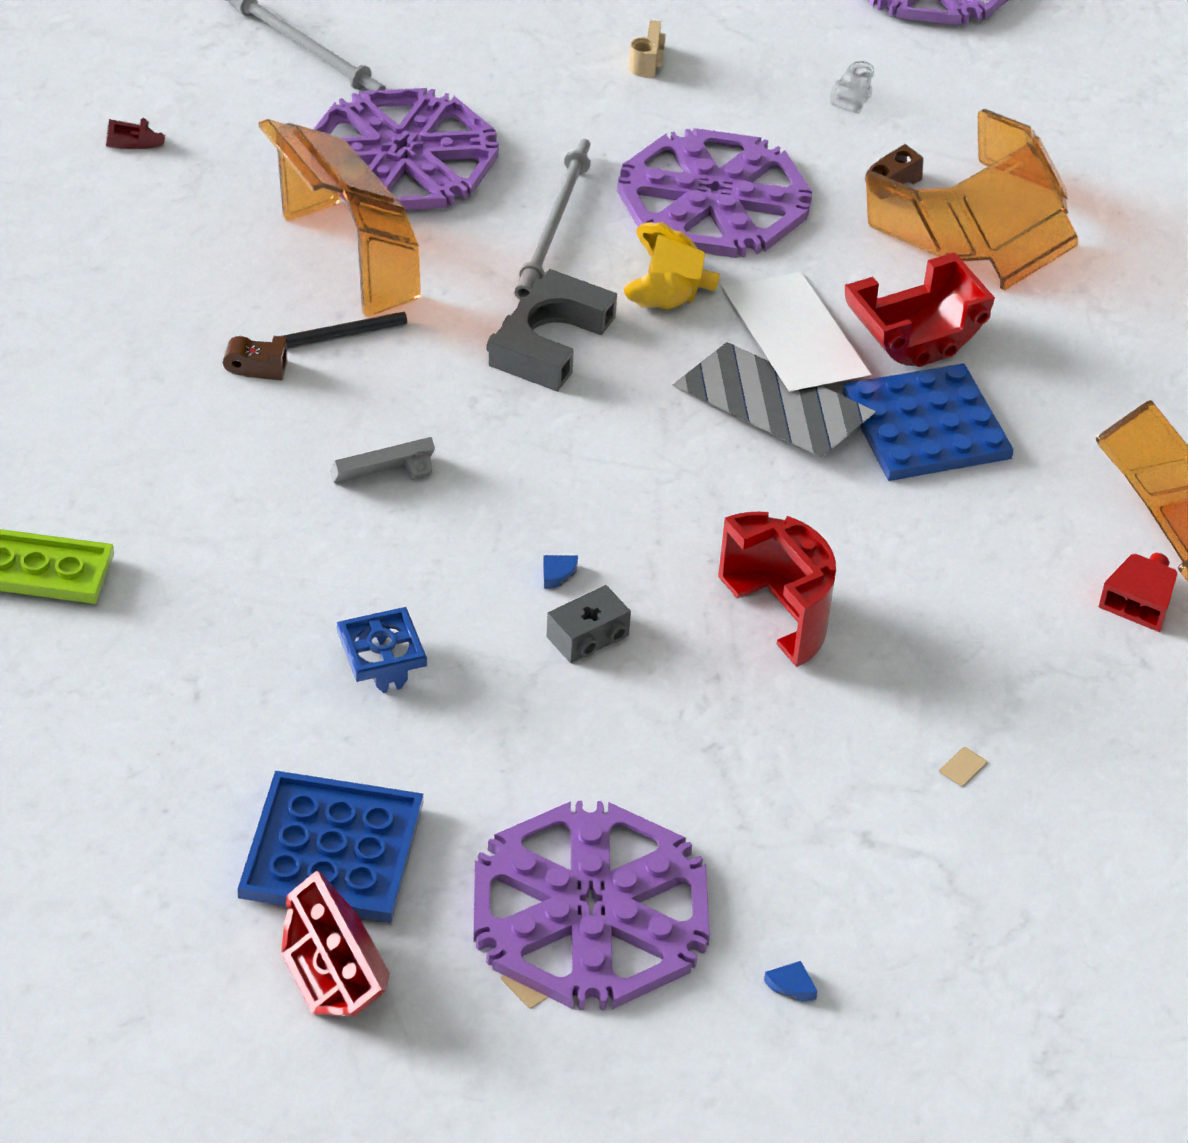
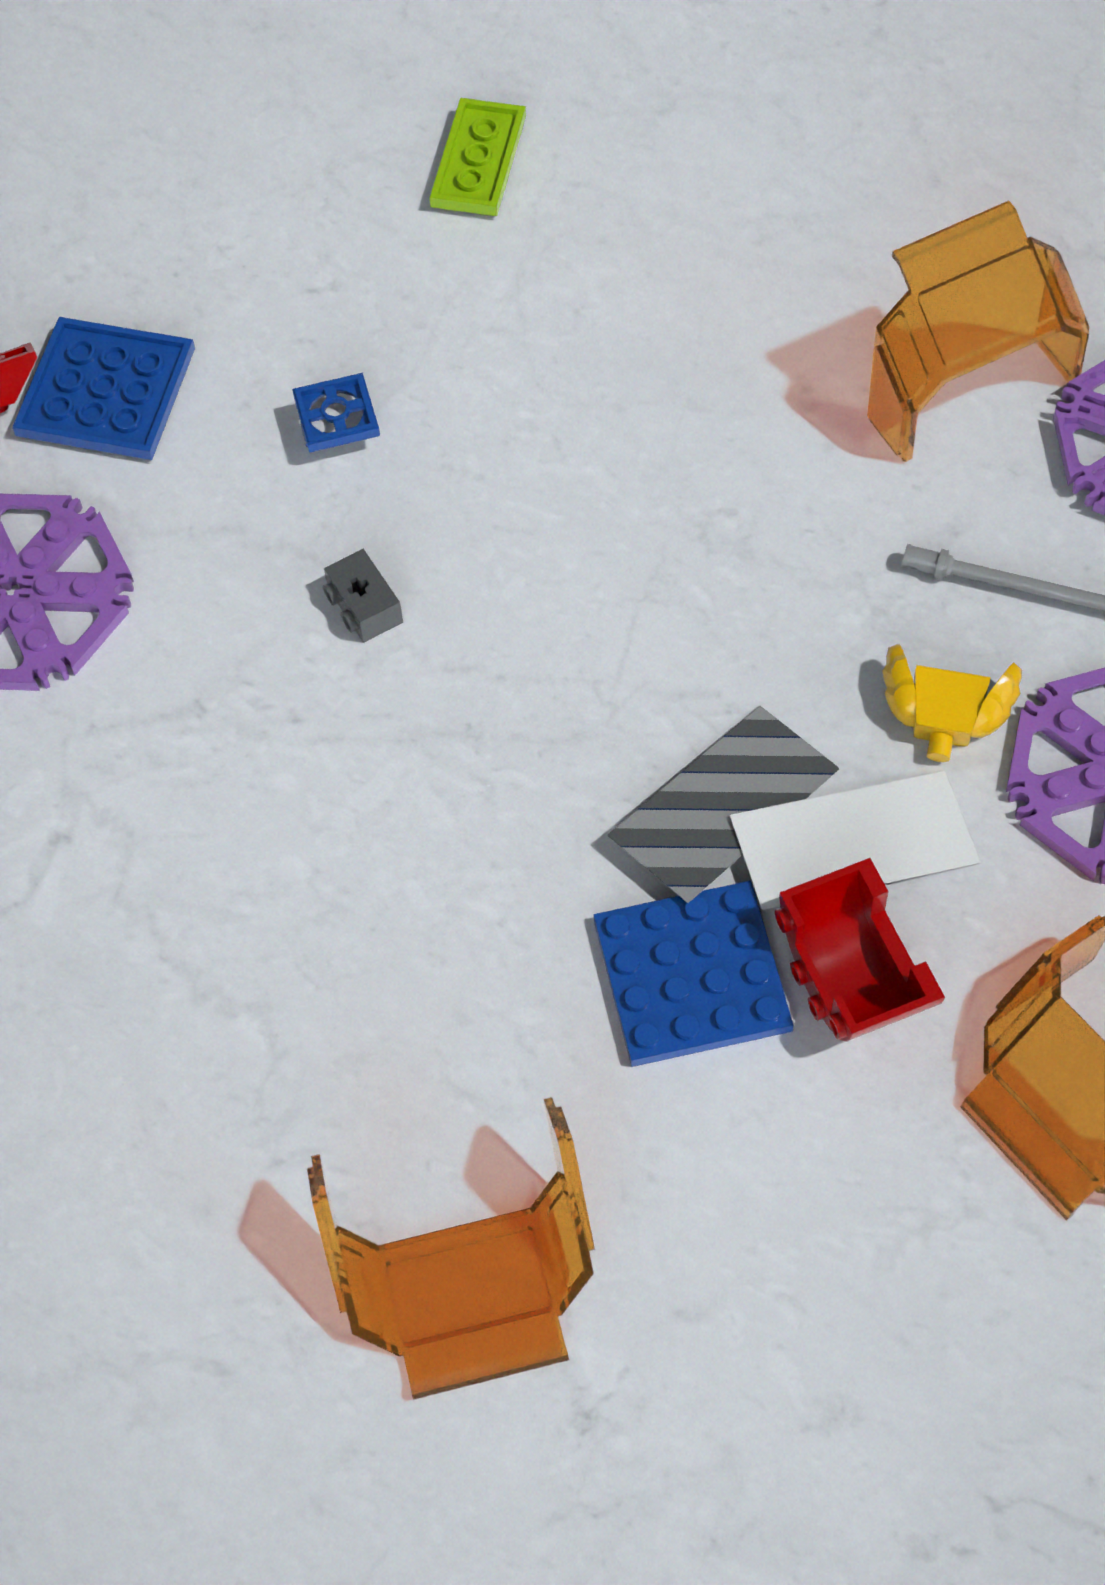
camera: 100 degrees right, 15 degrees up
(256, 358) = (780, 311): reddish brown leg -> none
(346, 329) = (839, 391): black bar -> none
(413, 455) = (623, 446): light grey hinge -> none
(552, 299) = (810, 542): dark grey arch -> none
(558, 568) = (454, 577): blue tile -> none
(789, 562) = (379, 779): red cylinder -> none
(963, 766) = (144, 942): tan sticker -> none
(1140, 590) = (376, 1169): red torso -> none

